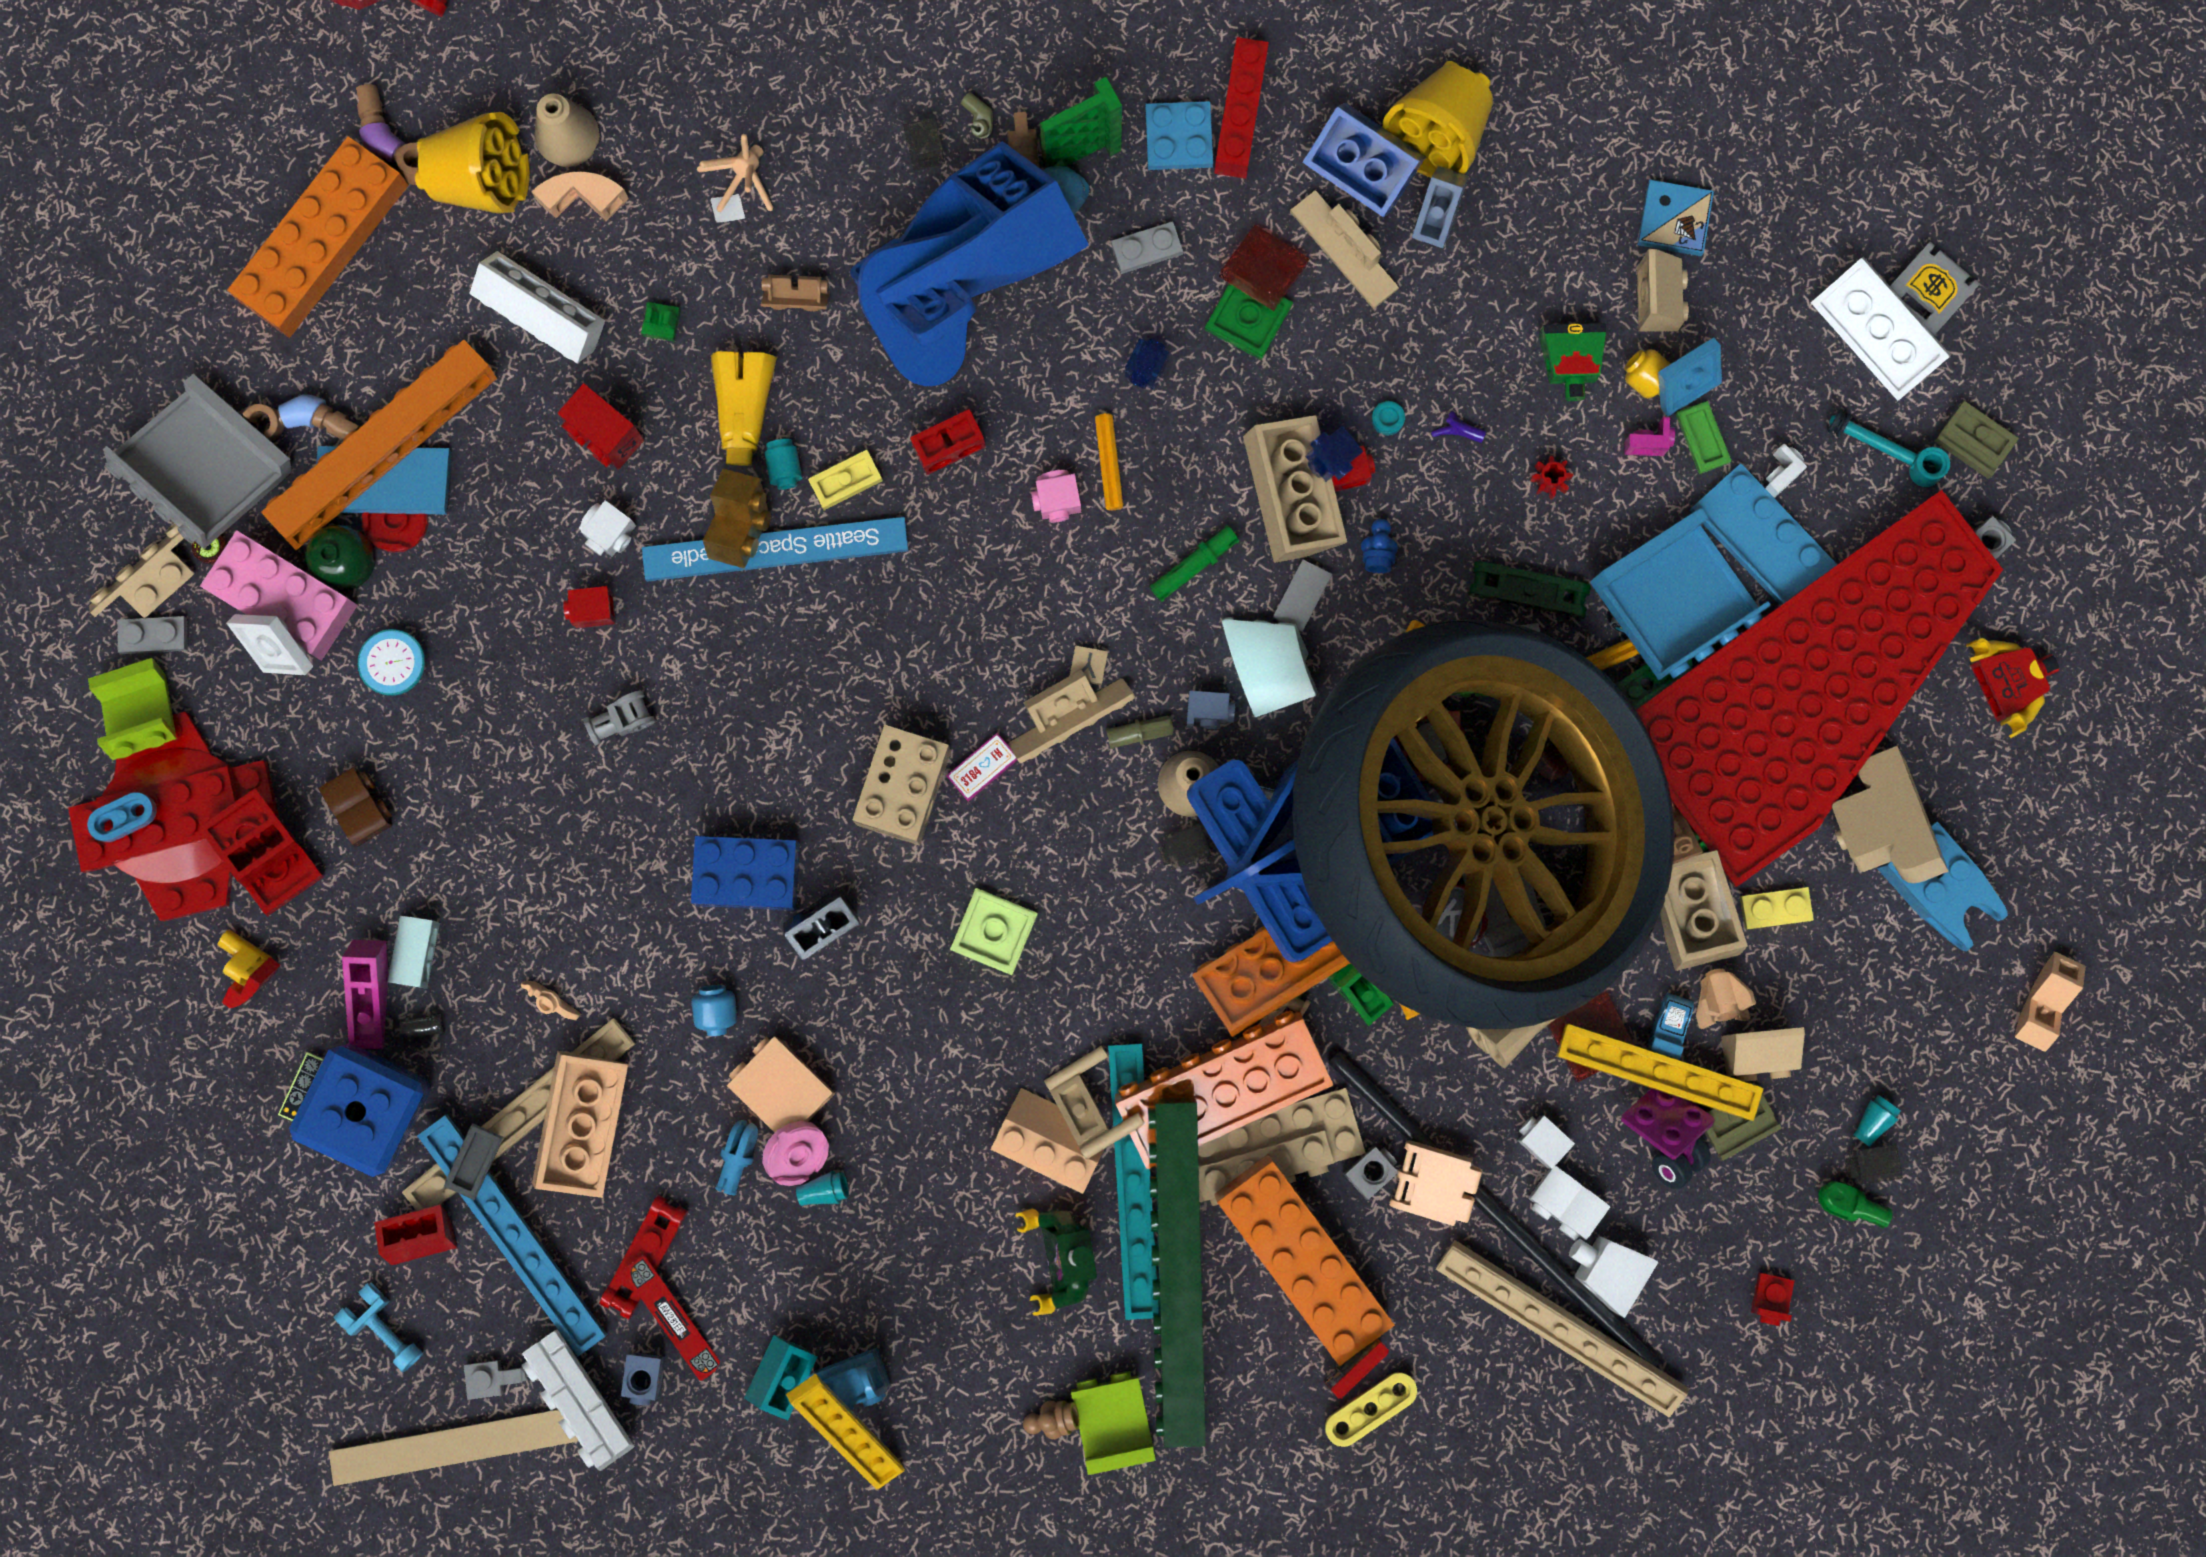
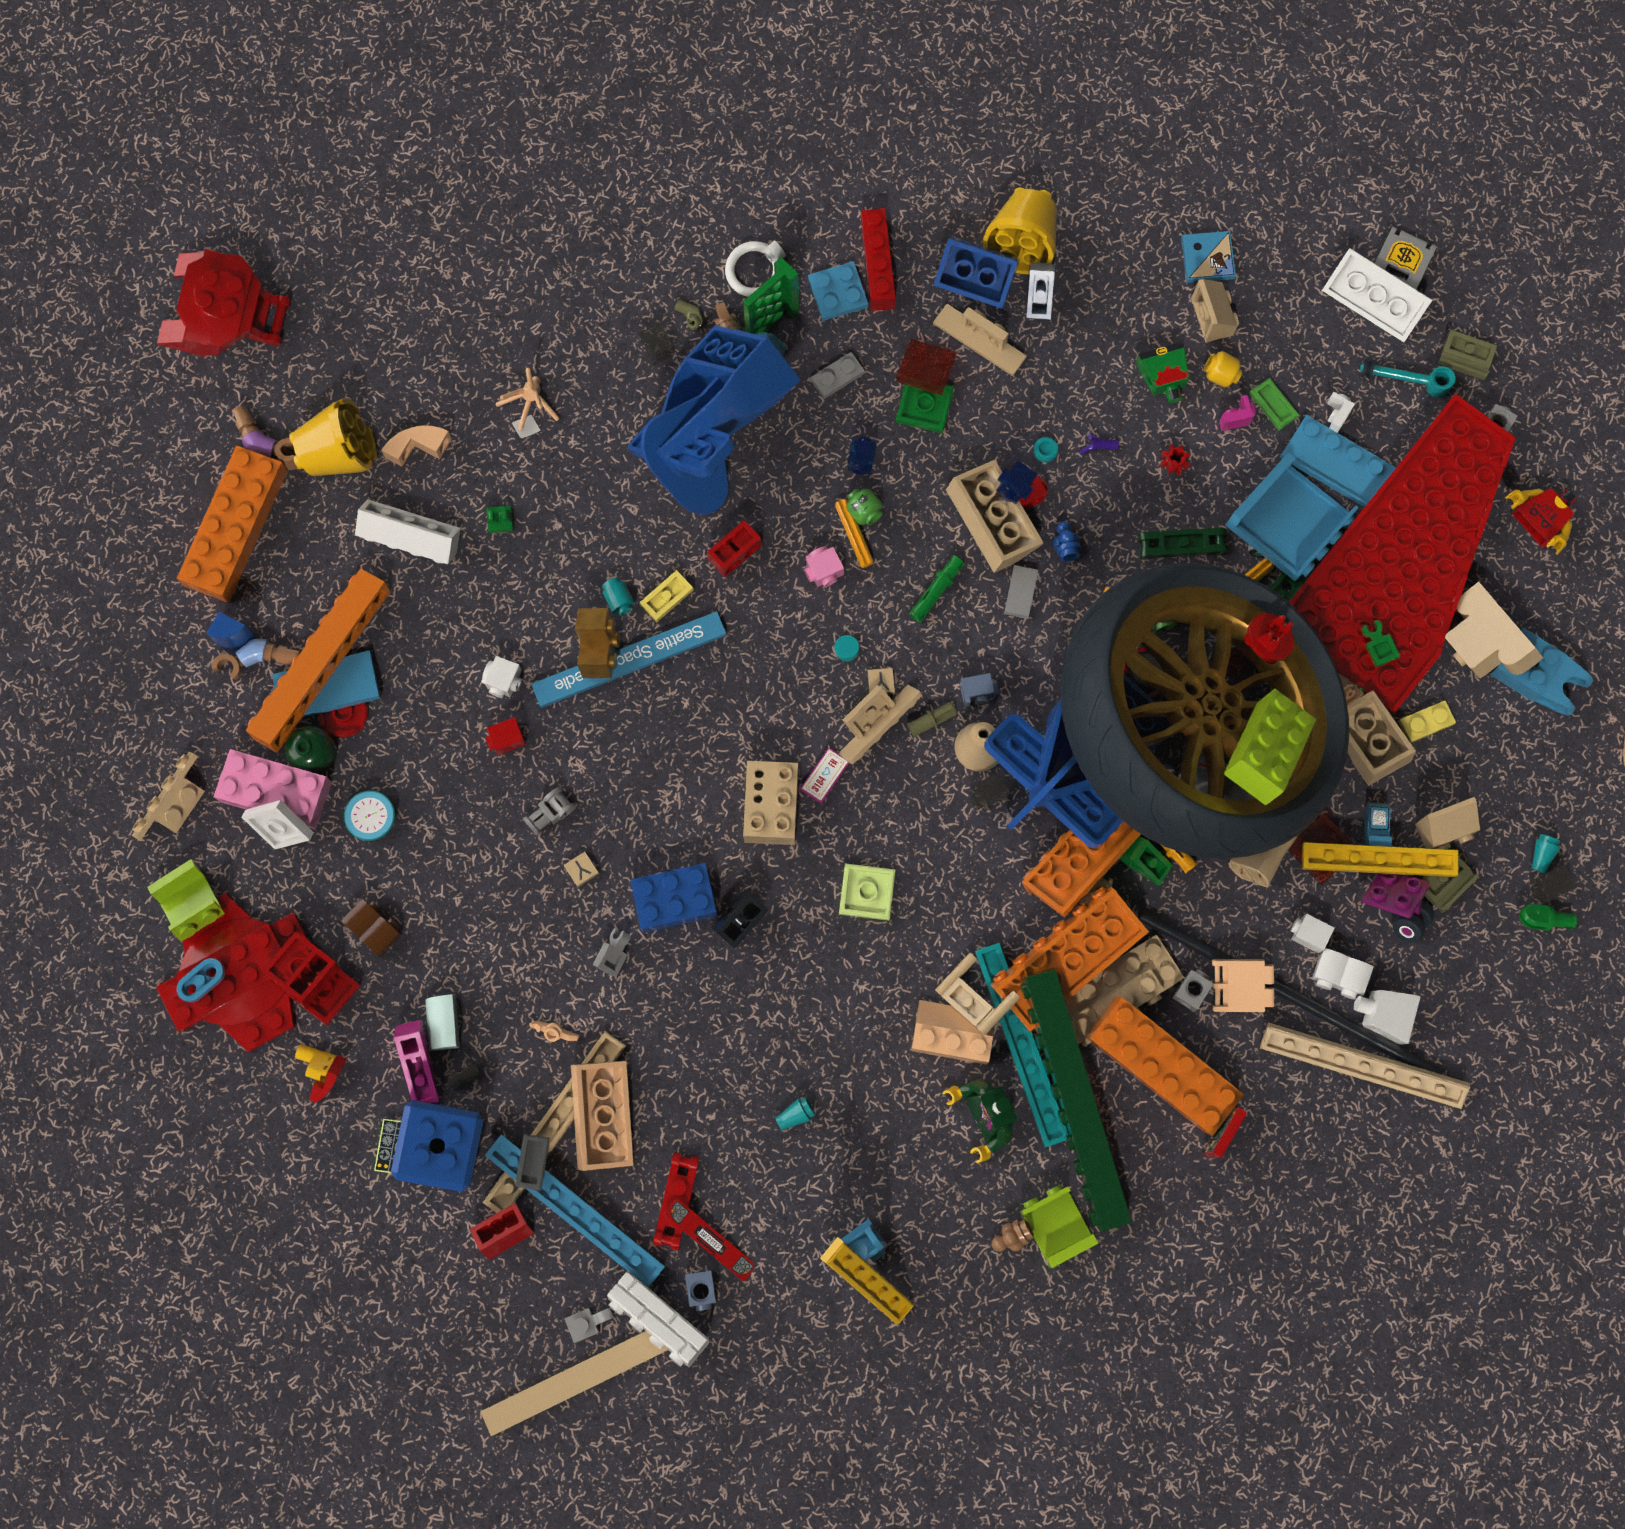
camera: 15 degrees left, 5 degrees down
(152, 635) = (185, 844): light grey plate -> none
(199, 464) = (189, 708): light grey panel -> none
(211, 552) = (210, 768): tile -> none
(274, 379) = (229, 632): none -> blue brick
(404, 1354) = (518, 1322): medium azure bar -> none
(565, 131) = (392, 402): tan cone -> none
(603, 428) = (478, 604): red brick -> none
(640, 803) = (581, 869): none -> tan tile
(647, 926) = (610, 955): none -> light grey plate
(714, 1009) = (678, 1003): dark azure head -> none
(737, 1155) = (725, 1106): dark azure arm -> none
(741, 400) = (575, 559): yellow piece -> none
(779, 1085) = (743, 1047): light nougat brick -> none
(779, 1372) = (803, 1261): teal brick -> none
(795, 1153) = (768, 1091): bright pink tile -> none
(810, 294) = (582, 476): medium nougat hinge -> none
(1057, 609) = (847, 648): none -> teal tile
(1108, 60) = (772, 252): none -> white piece
(1131, 431) = (864, 506): none -> bright green head
(1269, 663) = (1012, 644): light aqua slope -> none
(1387, 1406) = (1254, 1158): light yellow plate -> none
(1548, 900) = (1270, 747): none -> lime brick
(1585, 759) = (1270, 637): none -> red plate
(1690, 377) = (1253, 363): dark azure tile -> none
(1723, 999) = (1409, 795): light nougat brick -> none
(1743, 799) = (1381, 648): none -> green plate
(1772, 1299) = (1509, 1002): red bracket -> none

